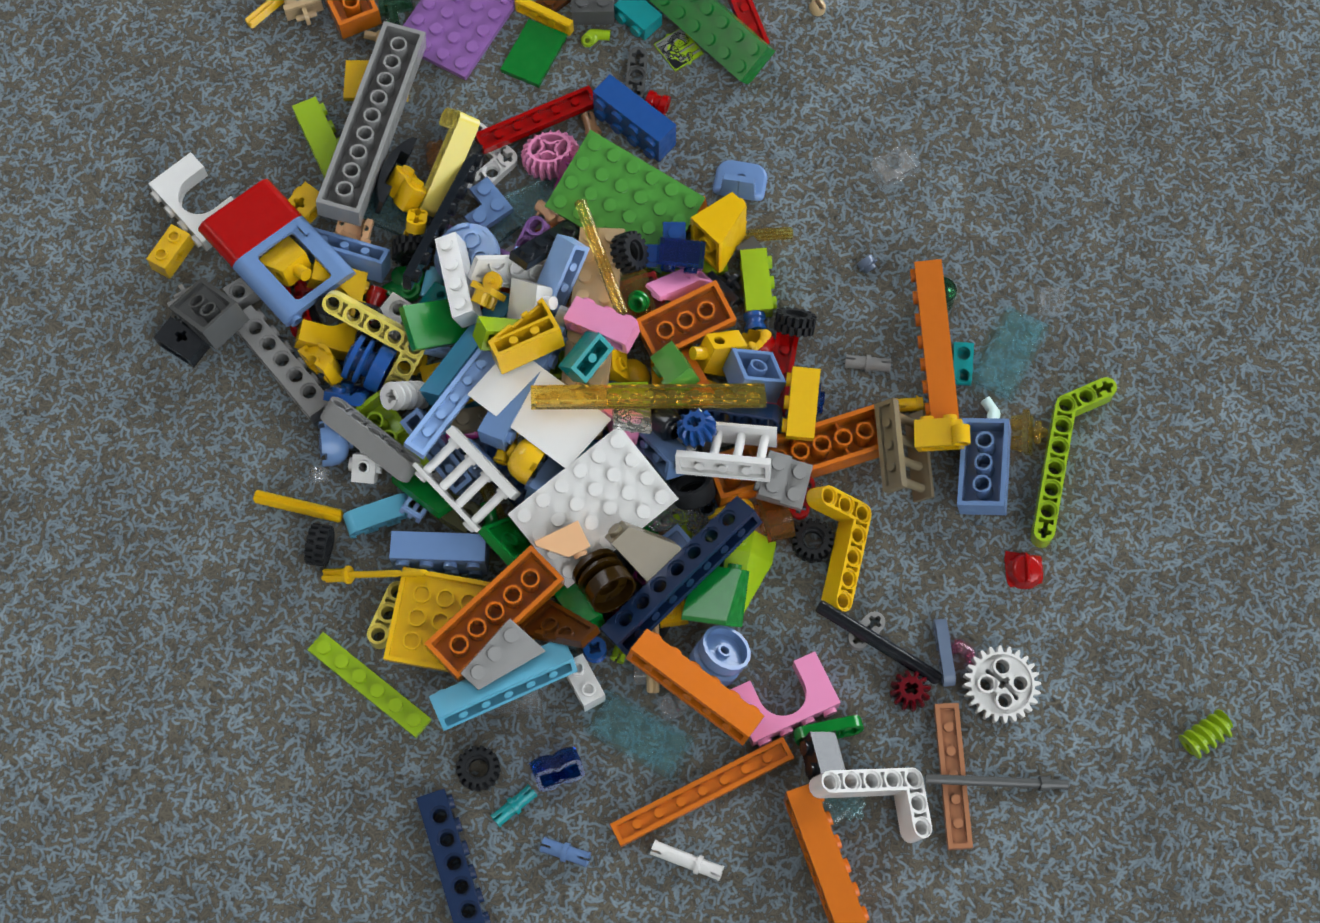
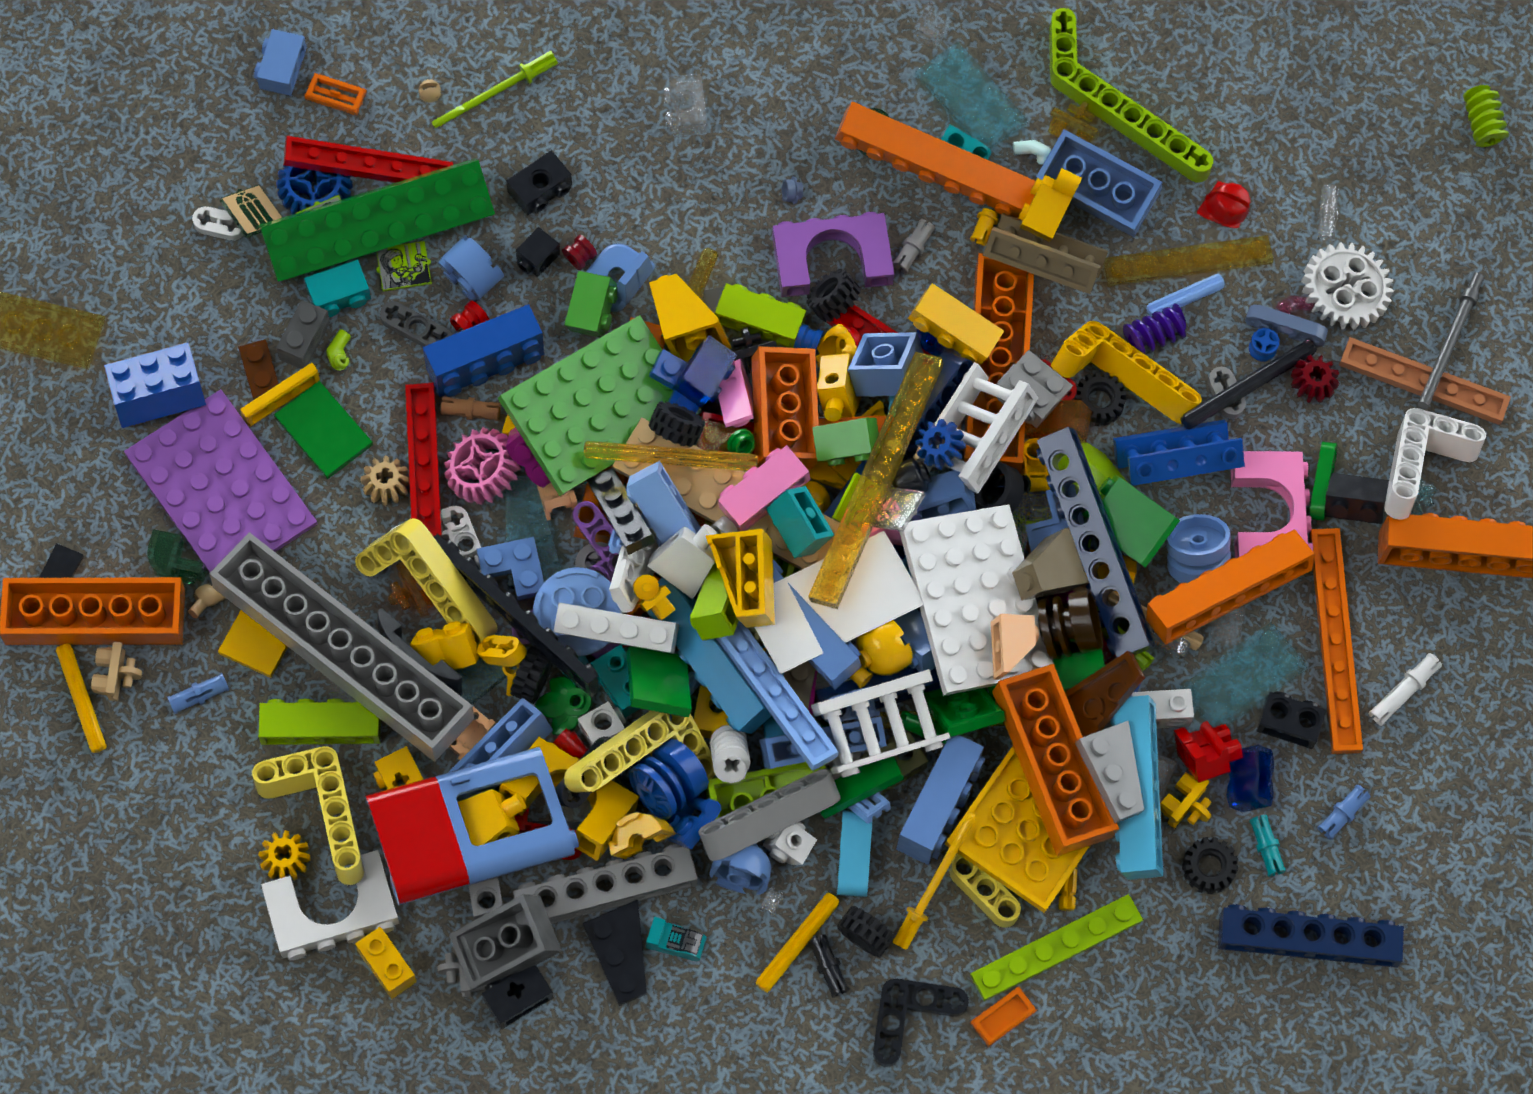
camera: 70 degrees left, 0 degrees up
(220, 160) = (283, 845): none -> yellow gear
(246, 391) = (620, 951): none -> black wing
(263, 423) = (675, 940): none -> teal leg
(283, 160) = (332, 803): none -> light yellow beam
(284, 597) = (909, 1002): none -> black beam
(289, 533) = (828, 965): none -> black pin
(301, 668) = (1003, 1016): none -> orange tile
(311, 62) = (198, 693): none -> medium blue pin
(417, 674) = (1067, 900): none -> yellow axle
(506, 99) = (394, 485): none -> tan gear
(530, 733) = (1193, 790): none -> yellow hips
(563, 727) = (1207, 750): none -> red hips
(615, 782) = (1289, 727): none -> black brick
(692, 84) = (471, 268): none -> medium blue brick
(705, 169) = (591, 304): none -> bright green brick
(729, 122) = (537, 252): none -> black brick
(744, 148) = (579, 252): none -> dark red wheel
(779, 92) = (545, 170): none -> black brick
(790, 610) = (1178, 452): none -> blue fence
(826, 281) = (863, 233): none -> medium lavender arch
(863, 59) = (528, 71): none -> lime piece
(887, 558) = (1156, 328): none -> dark purple piece
(919, 636) = (1266, 338): none -> blue wheel
(930, 569) = (1188, 294): none -> light blue axle
(961, 560) = (1188, 260): none -> clear yellow plate
(1056, 647) = (1328, 214): none -> clear pin

